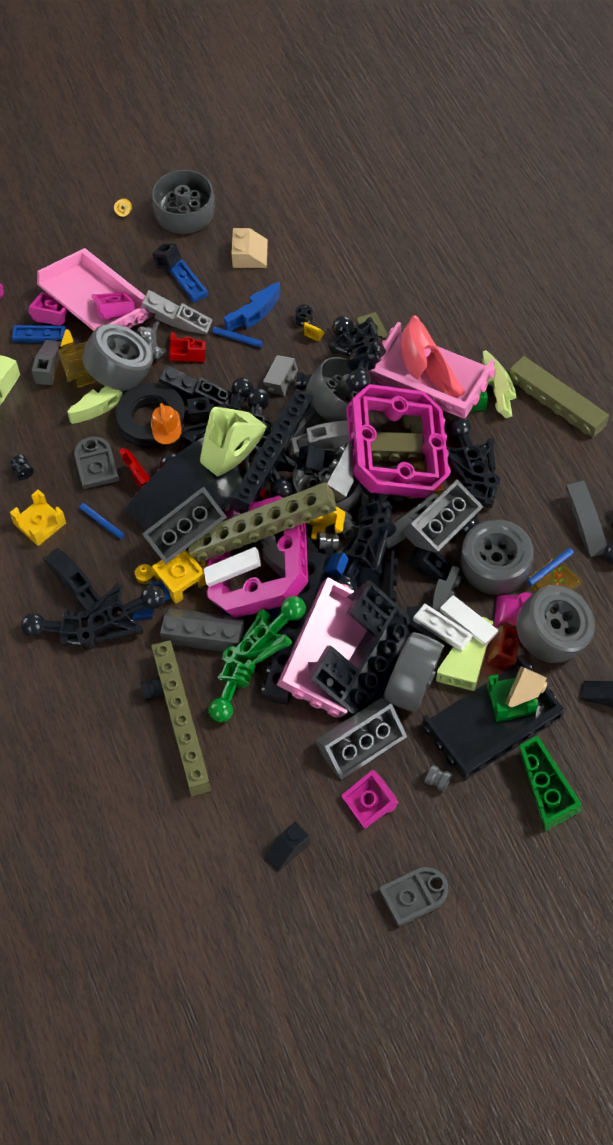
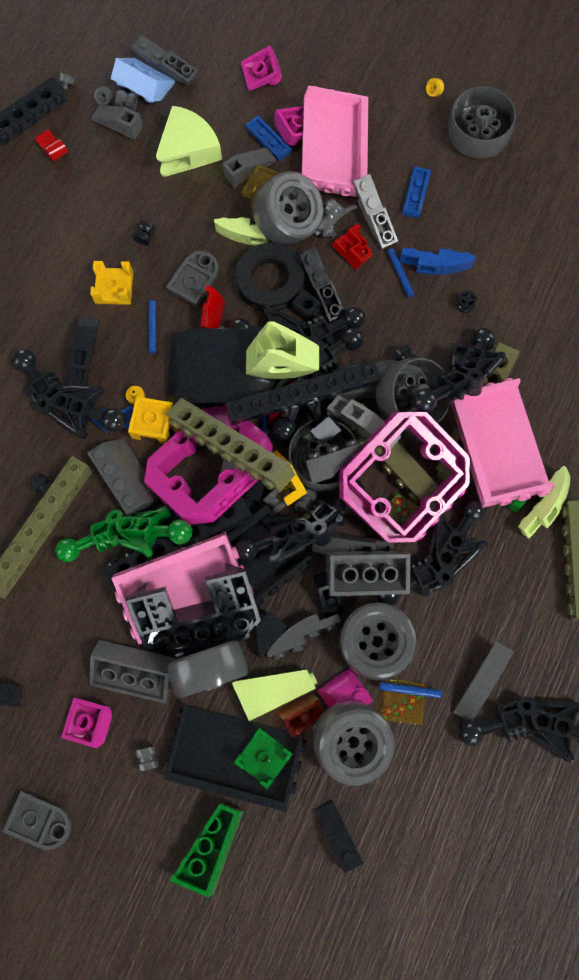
camera: 50 degrees right, 15 degrees up
(67, 340) = (277, 163): yellow slope -> none
(113, 304) = (335, 162): dark pink slope -> none
(165, 424) = (266, 295): orange piece -> none
(166, 256) = (420, 157): black brick -> none
(184, 525) = (183, 389): dark grey slope -> none
(232, 567) = (181, 454): white tile -> none
(248, 249) = (487, 207): tan slope -> none
(281, 375) = (394, 334): light grey hinge -> none
(313, 332) = (459, 321): yellow slope -> none
(336, 564) = (255, 527): blue slope -> none
(413, 342) = (507, 411): coral piece -> none
(443, 627) = (273, 654): white tile -> none
(469, 620) = (297, 669): white tile -> none
(526, 687) = (272, 767): tan slope -> none

